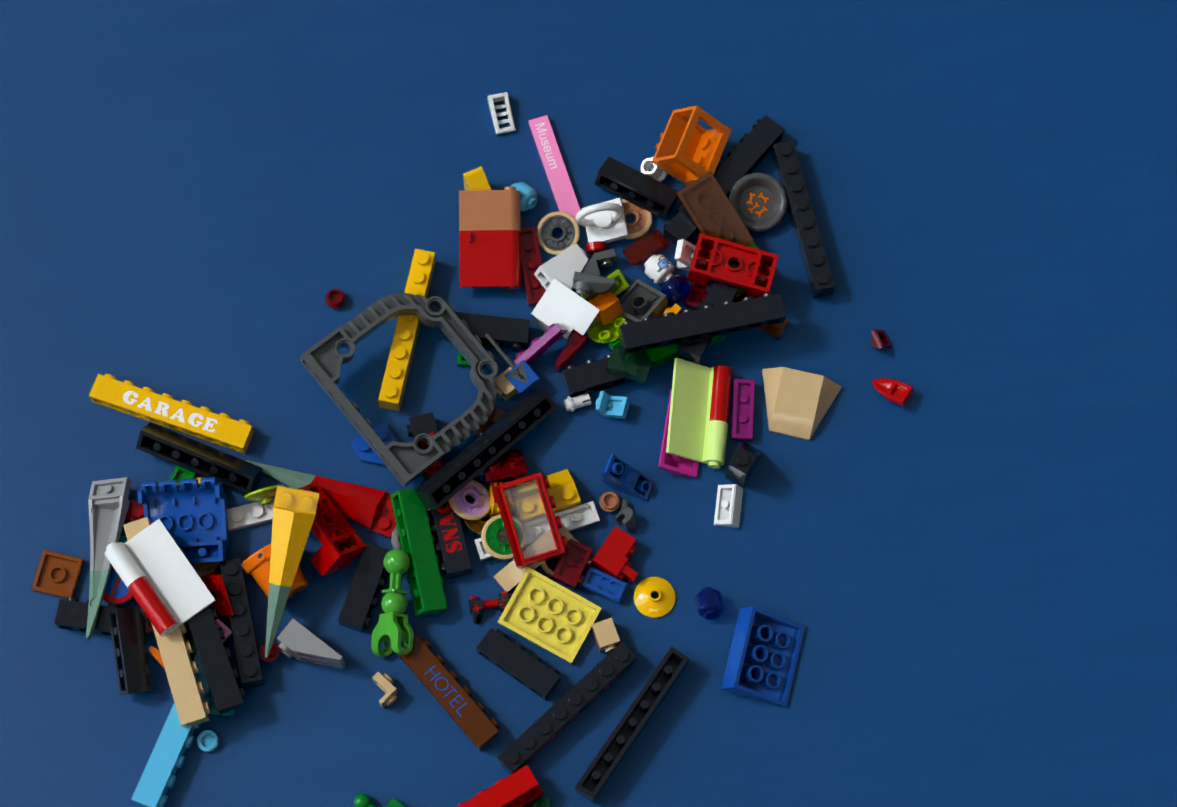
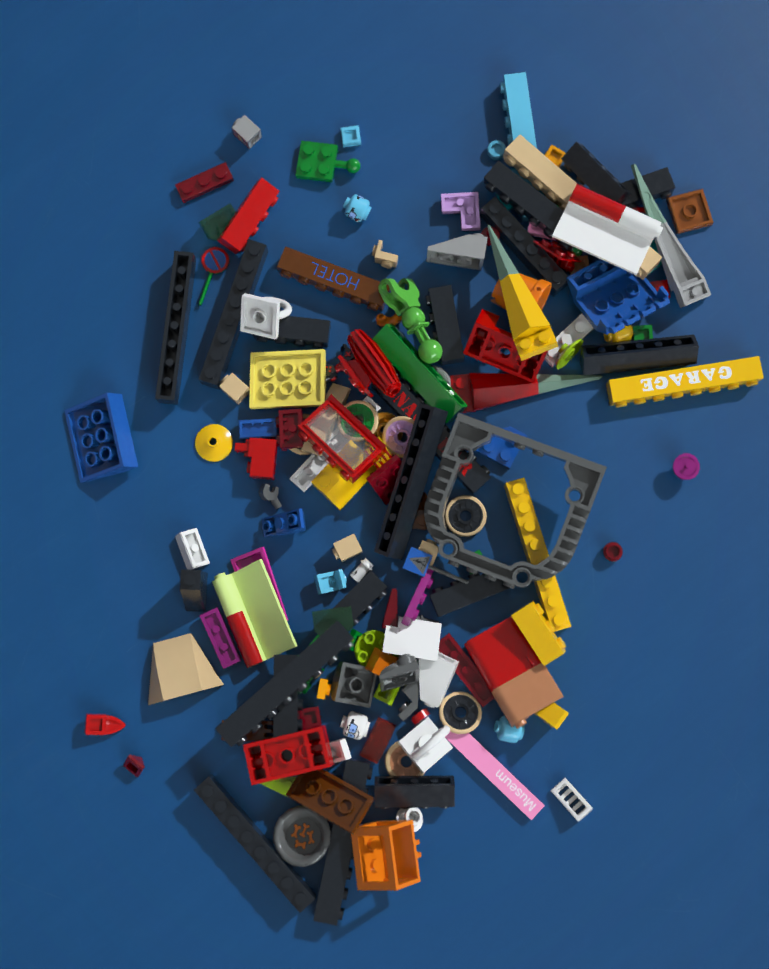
camera: 155 degrees right, 10 degrees up
(155, 702) = (555, 155): none -> light orange tile
(221, 333) = (686, 466): none -> magenta piece
(273, 699) = (467, 205): none -> lavender plate
(384, 753) = (357, 208): none -> medium azure head
(419, 624) = (382, 320): none -> orange arm
(448, 257) = (539, 632): none -> yellow slope
(448, 389) = (461, 527): none -> black wheel
(463, 578) = (369, 366): none -> red plate
(541, 680) = (262, 315): none -> white tile
(557, 779) = (214, 261): none -> piece
(580, 427) = (347, 548): none -> tan brick
(609, 502) = (290, 500): nougat plate -> none
(676, 289) = (331, 713): clear blue head -> none
(709, 603) = (165, 457): clear blue head -> none

